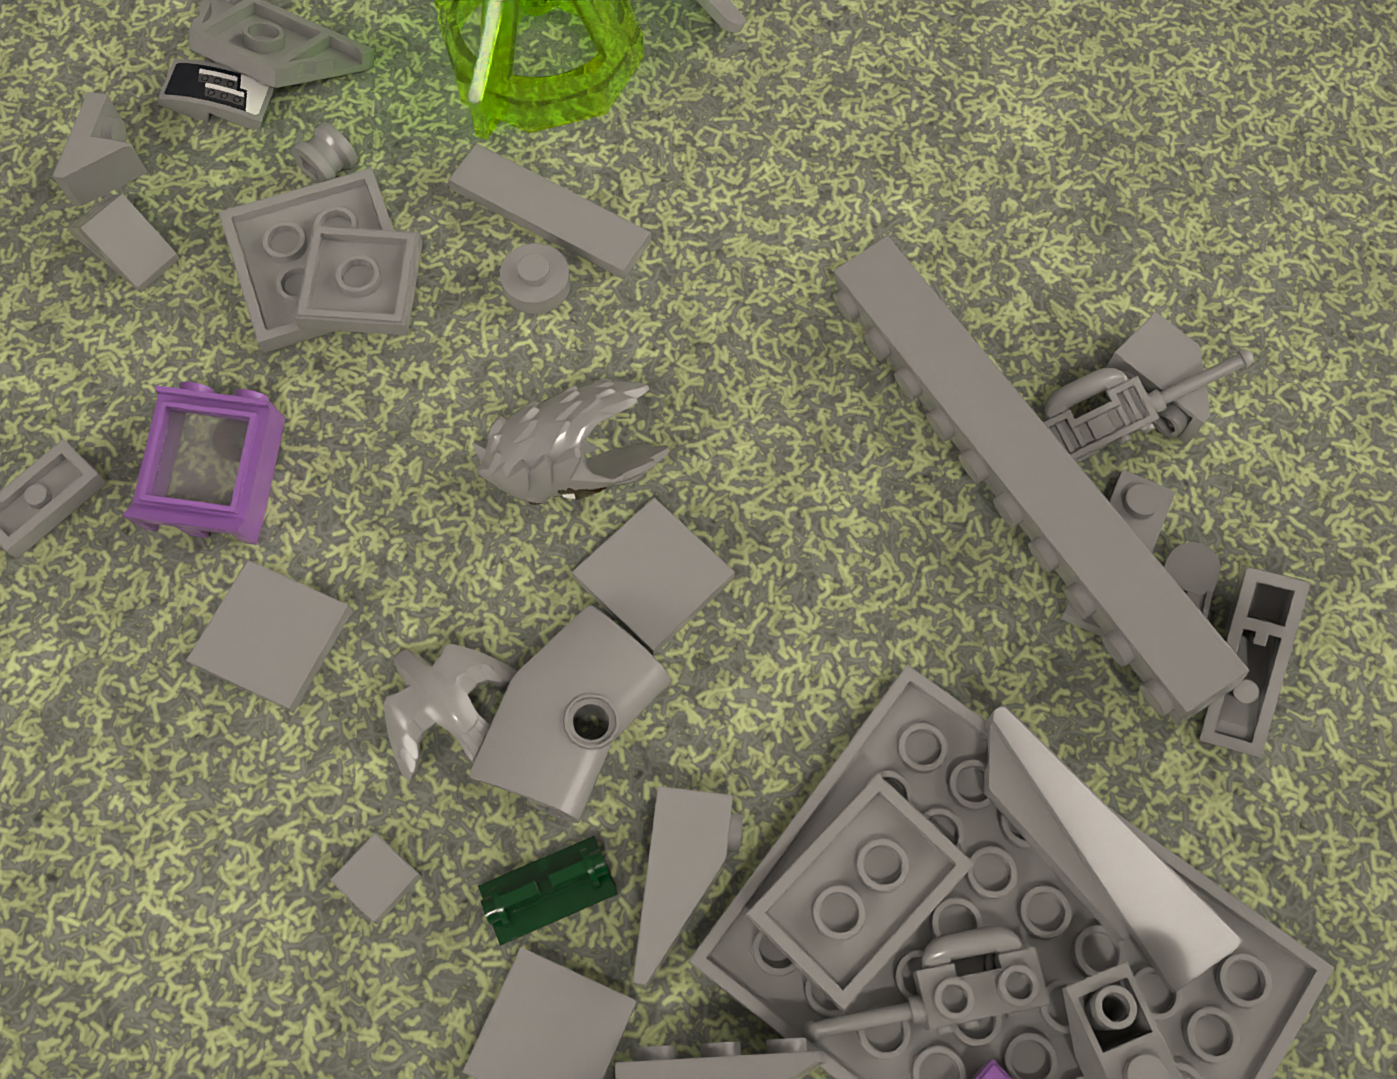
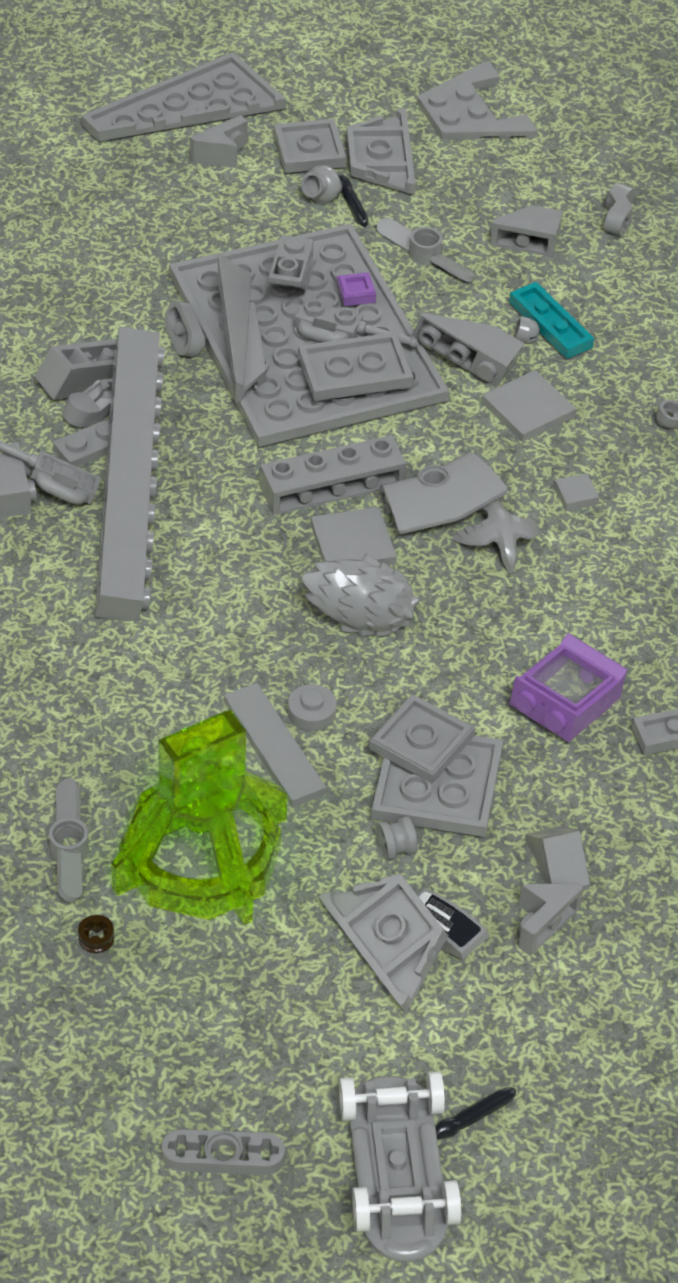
camera: 150 degrees left, 20 degrees down
(270, 635) = (575, 608): light grey tile -> none
(546, 890) = (509, 450): dark green hinge -> none
(685, 860) = (429, 420): light grey slope -> none
(753, 662) = (331, 474): none -> light grey brick
(1209, 849) = (184, 329): none -> light grey plate

